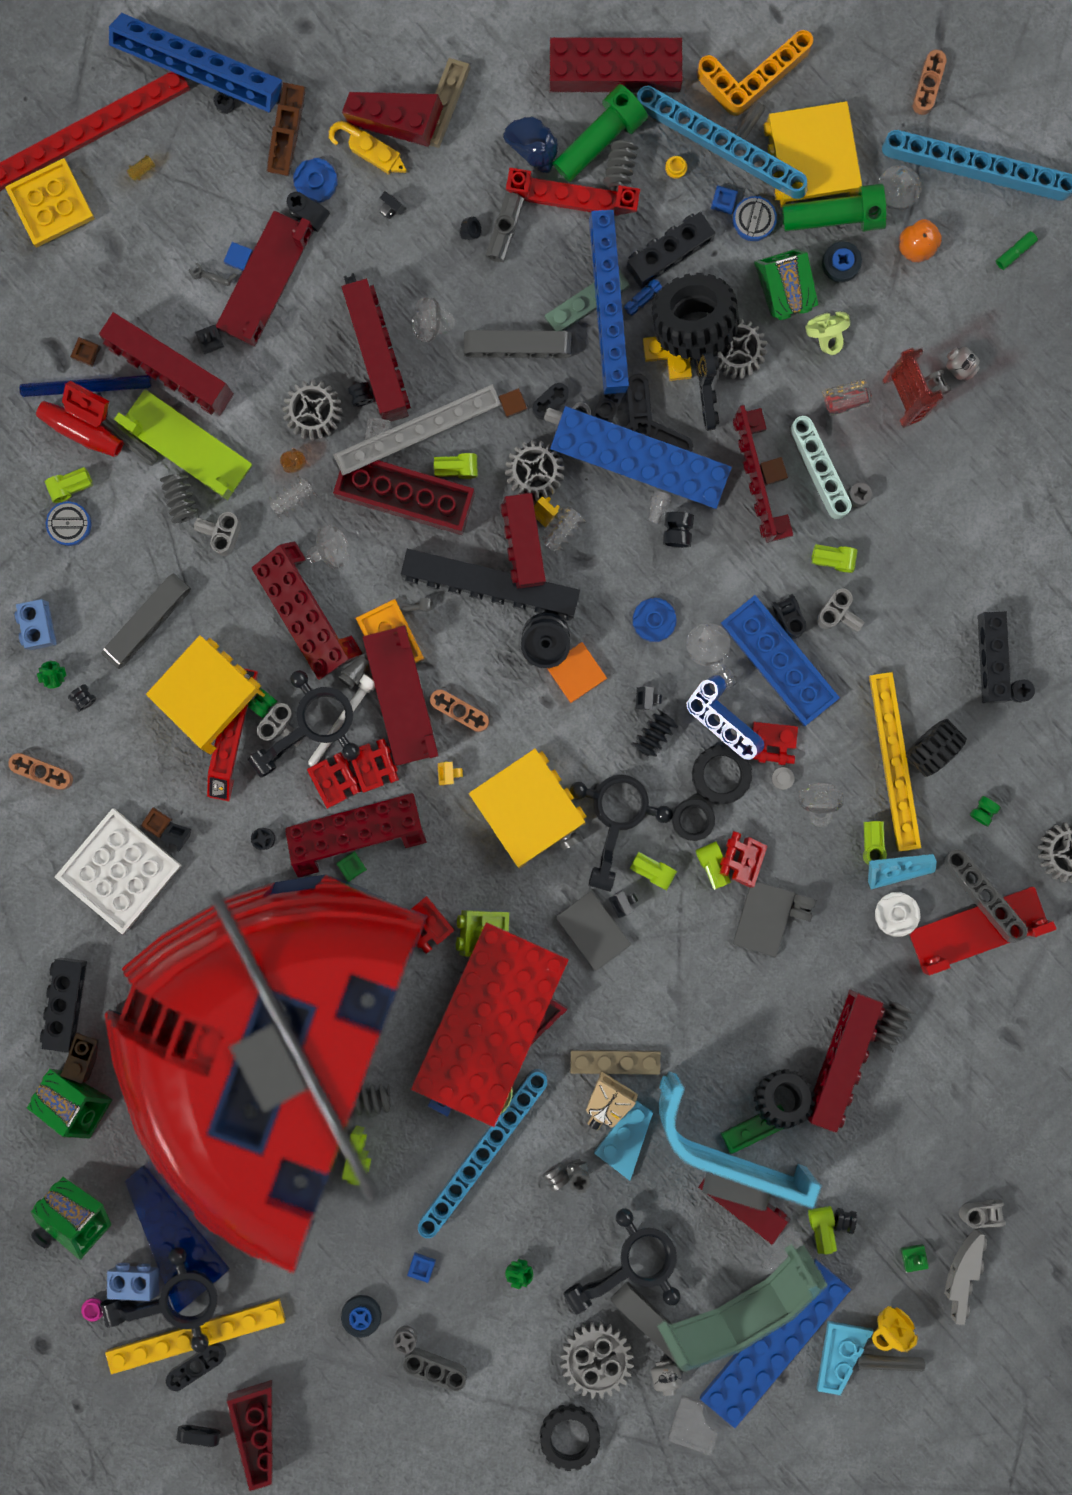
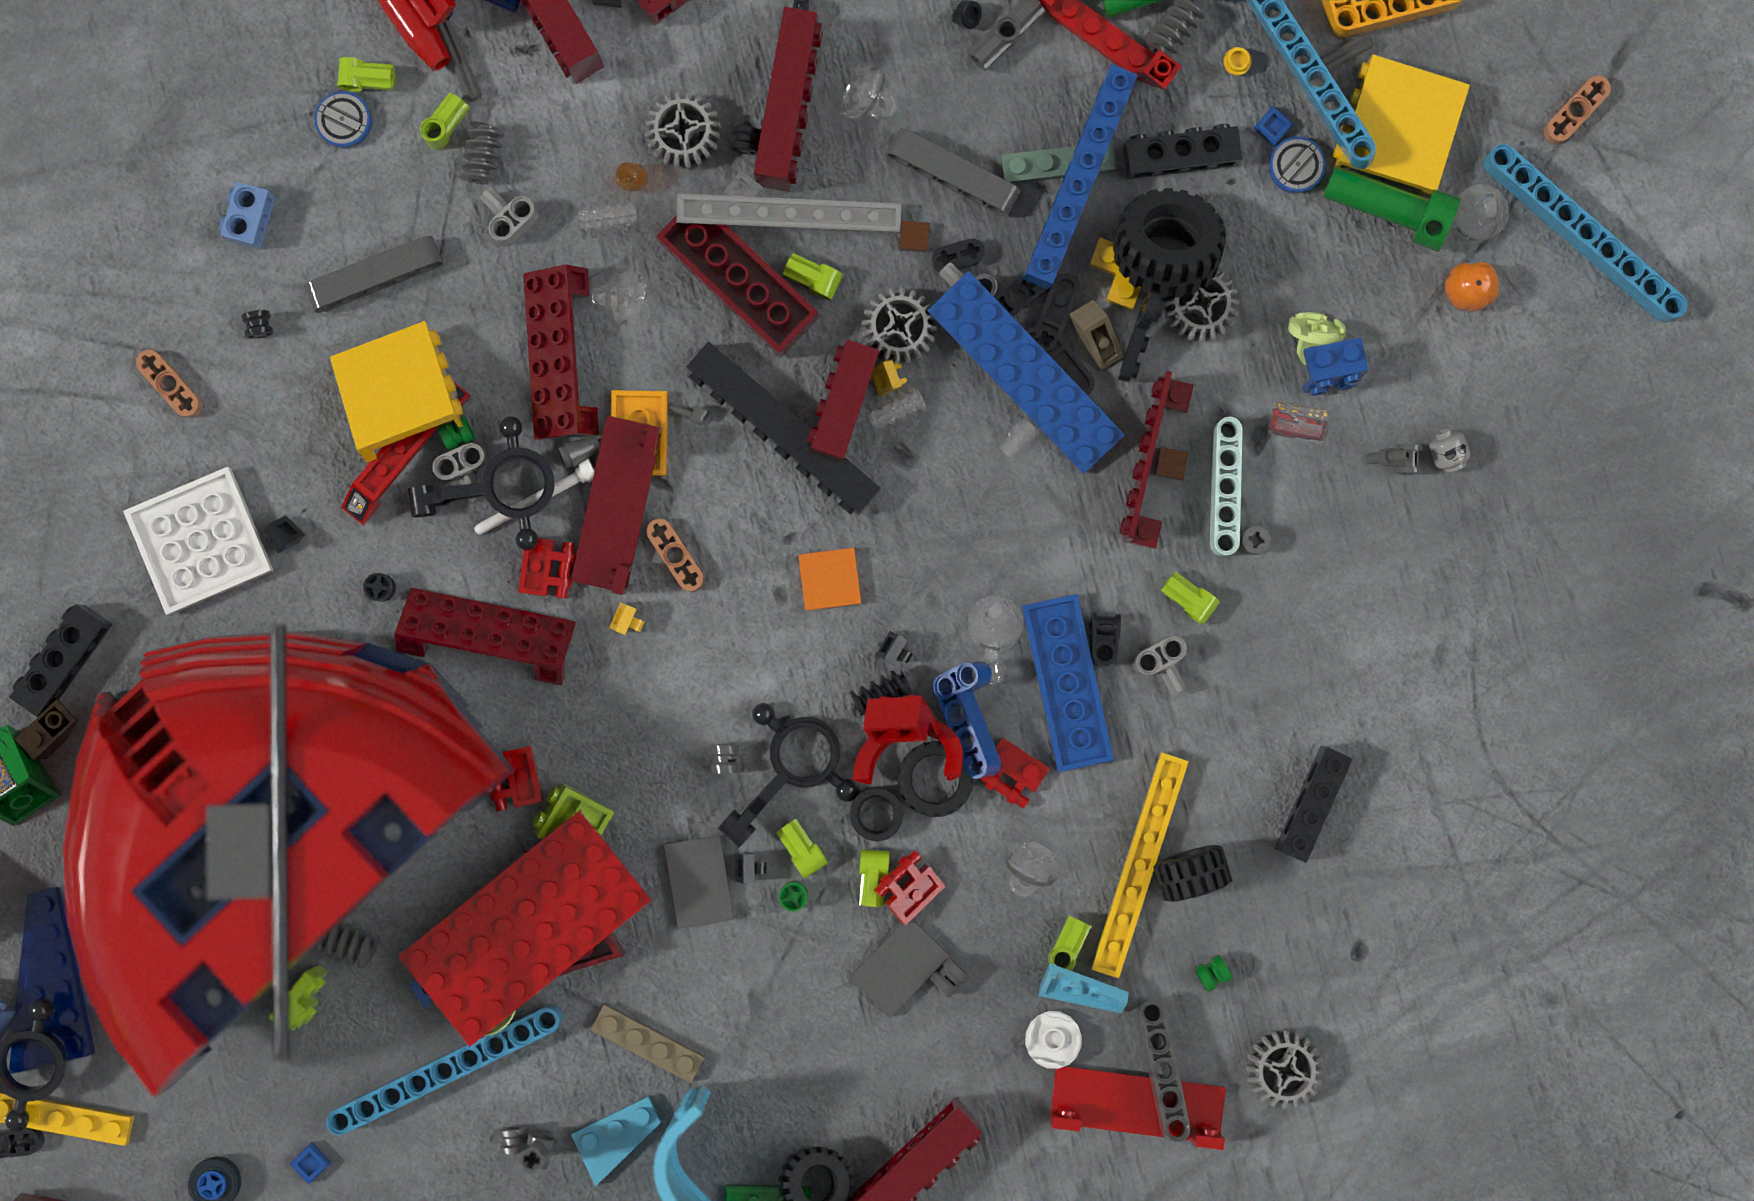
camera: 25 degrees right, 0 degrees up
(51, 674) = (236, 281): green gear -> none
(141, 486) = (446, 119): none -> lime piece
(156, 822) = (269, 507): reddish brown tile -> none
(185, 444) = (520, 96): lime bracket -> none
(327, 783) = (483, 562): red plate -> none
(351, 866) = (463, 669): green tile -> none
(528, 807) = (695, 704): yellow panel -> none
(545, 627) = (811, 525): black wheel -> none
(609, 1102) = (617, 1085): tan torso -> none
(643, 297) = (1123, 190): blue axle -> none
(654, 620) = (949, 564): blue tile -> none
(663, 909) = (791, 899): none -> green wheel
(676, 406) = (1097, 334): none -> dark tan slope
(678, 529) = (1028, 474): black wheel -> none
(680, 744) = (903, 720): none -> red piece
(782, 778) = (1002, 818): light grey plate -> none
(787, 283) = (1295, 258): green slope -> none
(837, 269) = (1361, 269): black wheel -> none
(854, 344) = (1334, 365): none -> blue bracket
(892, 1025) = (981, 1163): dark grey piece -> none
(912, 388) = (1373, 452): clear red fence -> none
(1014, 252) = (1581, 351): green piece -> none
(1017, 691) = (1320, 856): black wheel -> none

